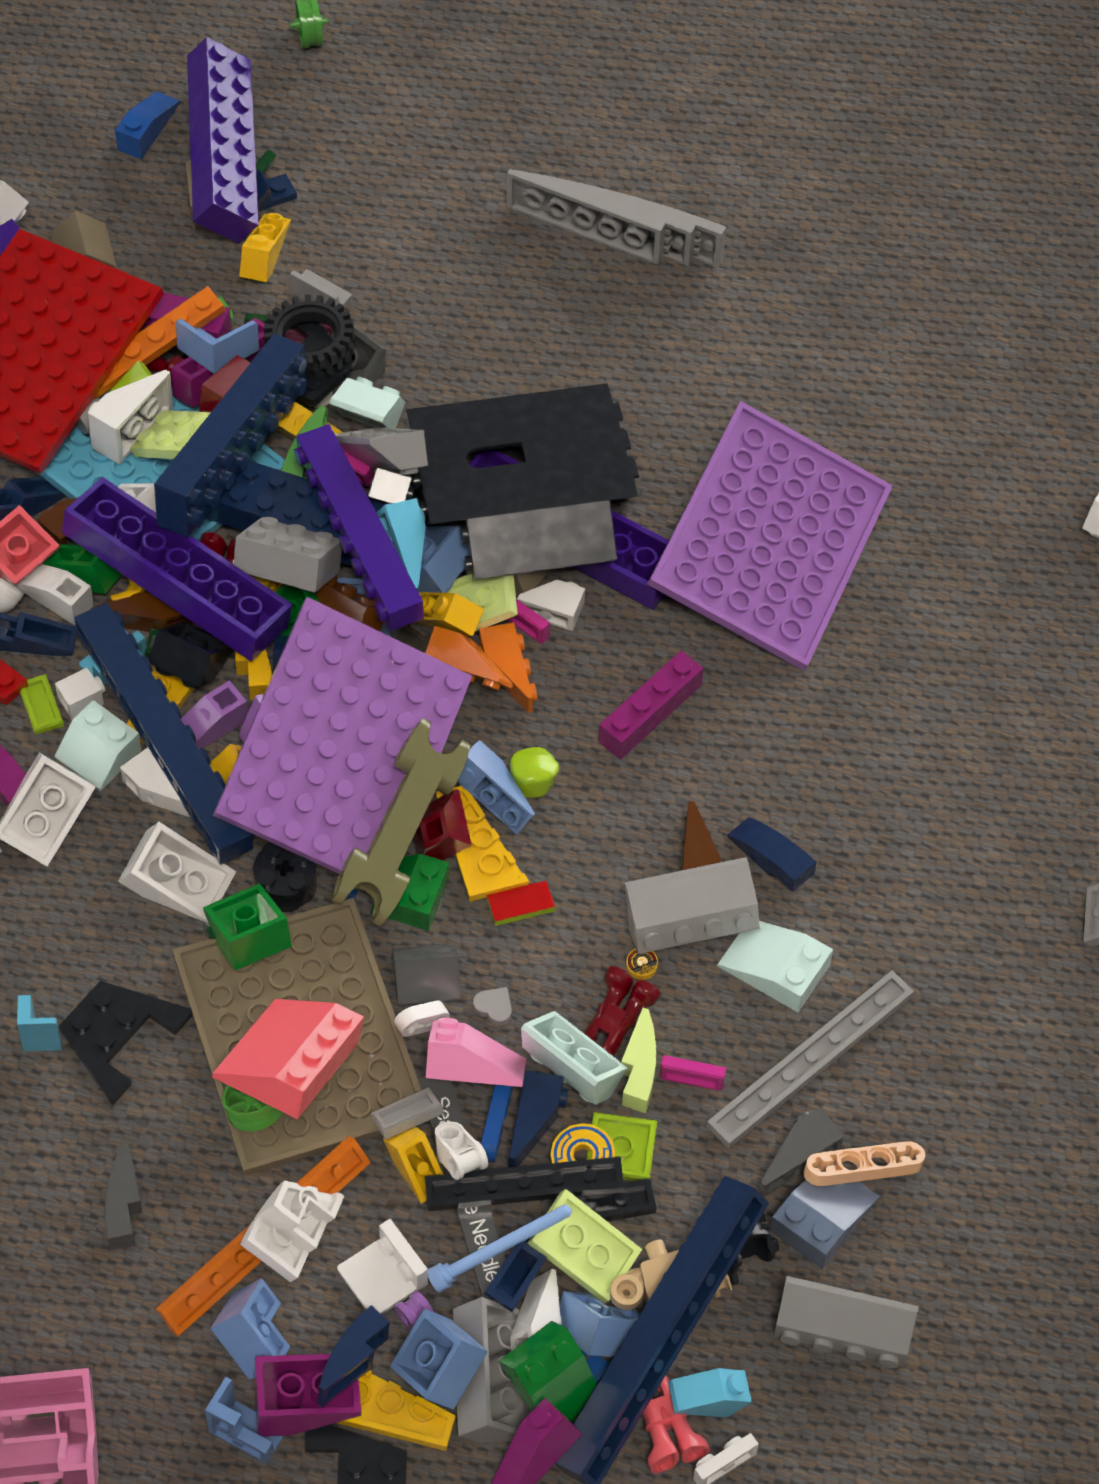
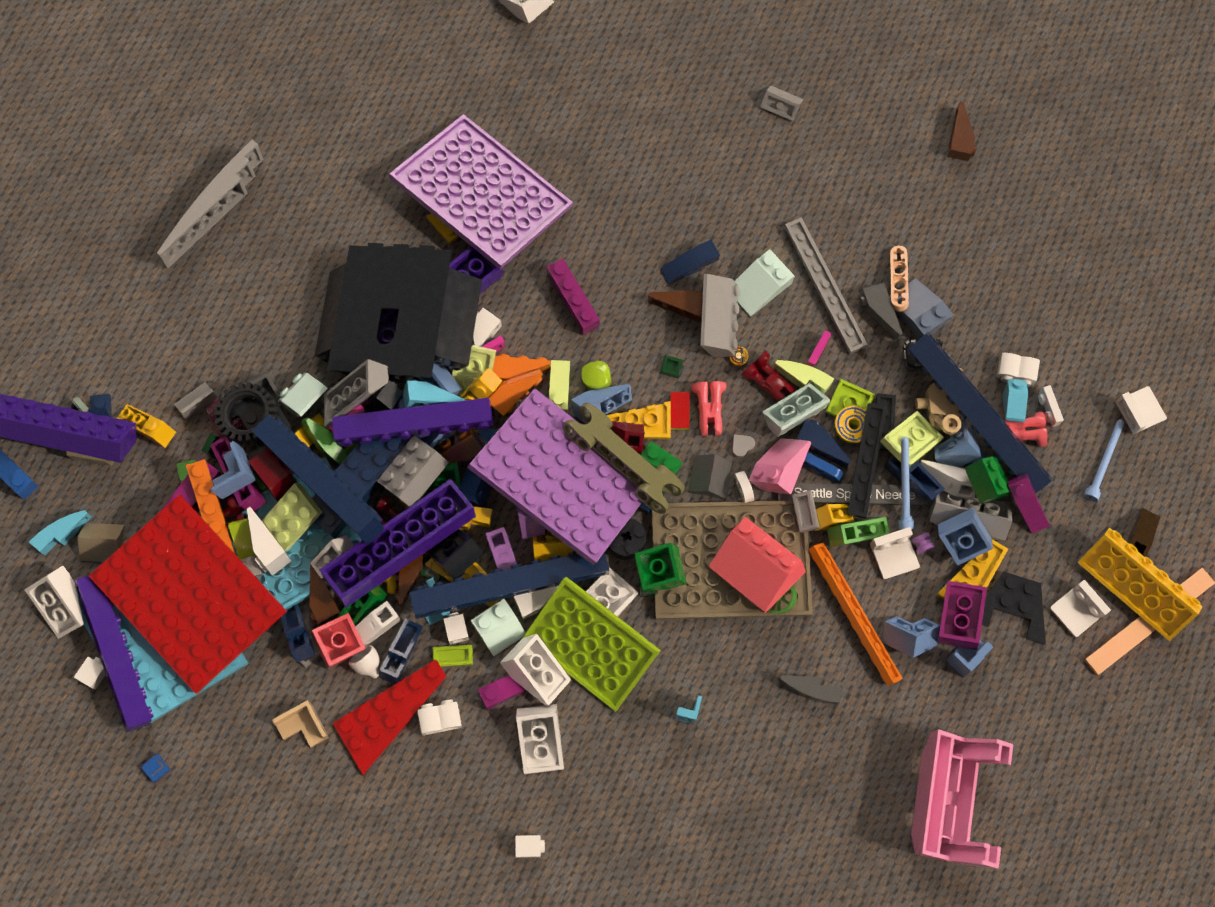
camera: 75 degrees left, 15 degrees up
(80, 195) = (59, 531): none -> medium azure slope
(101, 864) = (593, 643): none -> lime plate
(107, 1022) = (691, 671): black wing -> none
(290, 1227) = (857, 596): white slope -> none
(353, 1354) = (955, 582): dark blue slope -> none
(403, 1207) = (857, 531): none -> bright green slope
(458, 1150) = (844, 487): white piece -> none
(499, 725) = (559, 383): none -> yellowish green slope
(532, 942) = (709, 411): none -> coral piece
(590, 873) = (671, 366): none -> dark green tile
(773, 1392) = (1018, 367): none -> white brick
(845, 1322) = (992, 319): light grey slope -> none

